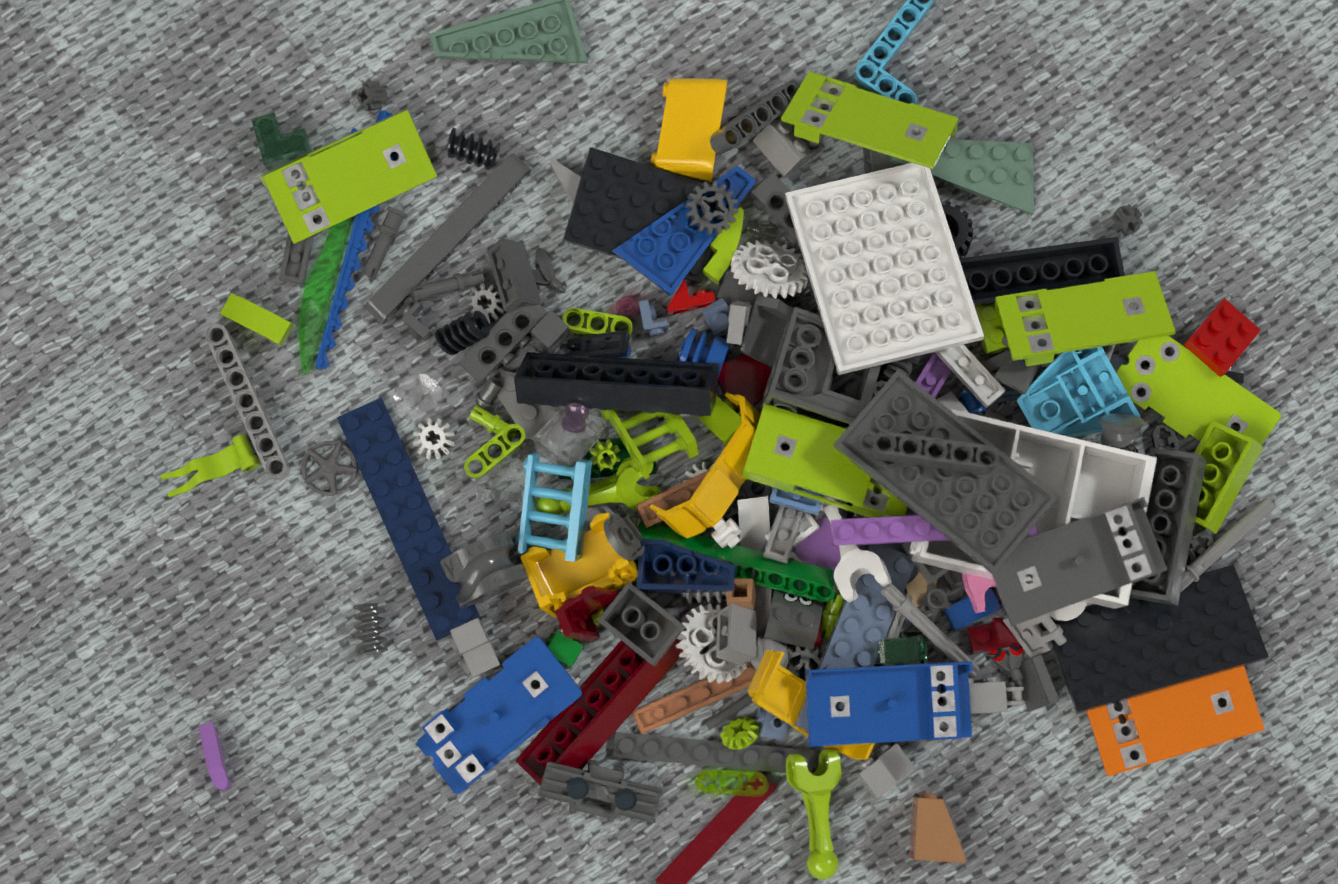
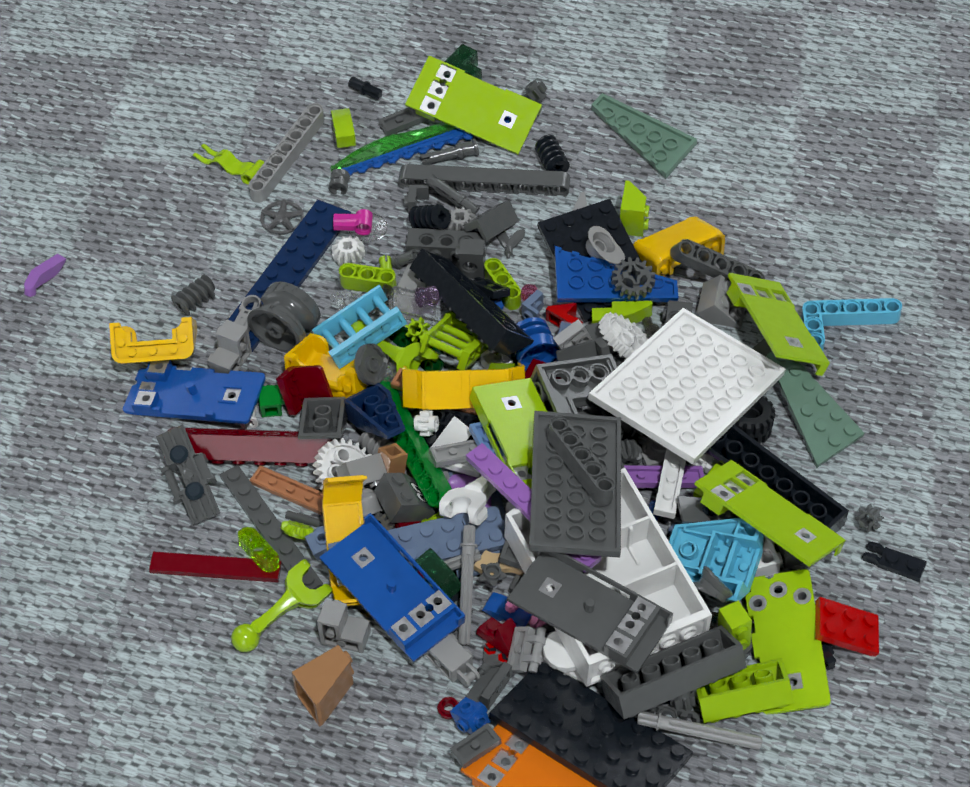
camera: 55 degrees right, 30 degrees down
(220, 257) = (365, 88): none -> black axle
(331, 379) = (339, 181): none -> dark grey wheel
(412, 404) = (359, 222): none -> dark pink piece
(412, 716) = (127, 350): none -> yellow windscreen
(445, 602) = (243, 314): none -> light grey piece
(615, 132) = (634, 210): none -> lime slope
(653, 204) = (602, 245): none -> light grey piece
(1037, 732) = (446, 702): none -> dark red plate
(1061, 727) = (470, 715): none -> blue brick
(1096, 747) = (475, 746): none -> dark grey panel
(1160, 435) = (736, 622): none -> lime brick
(1184, 234) = (895, 561): none -> black hinge

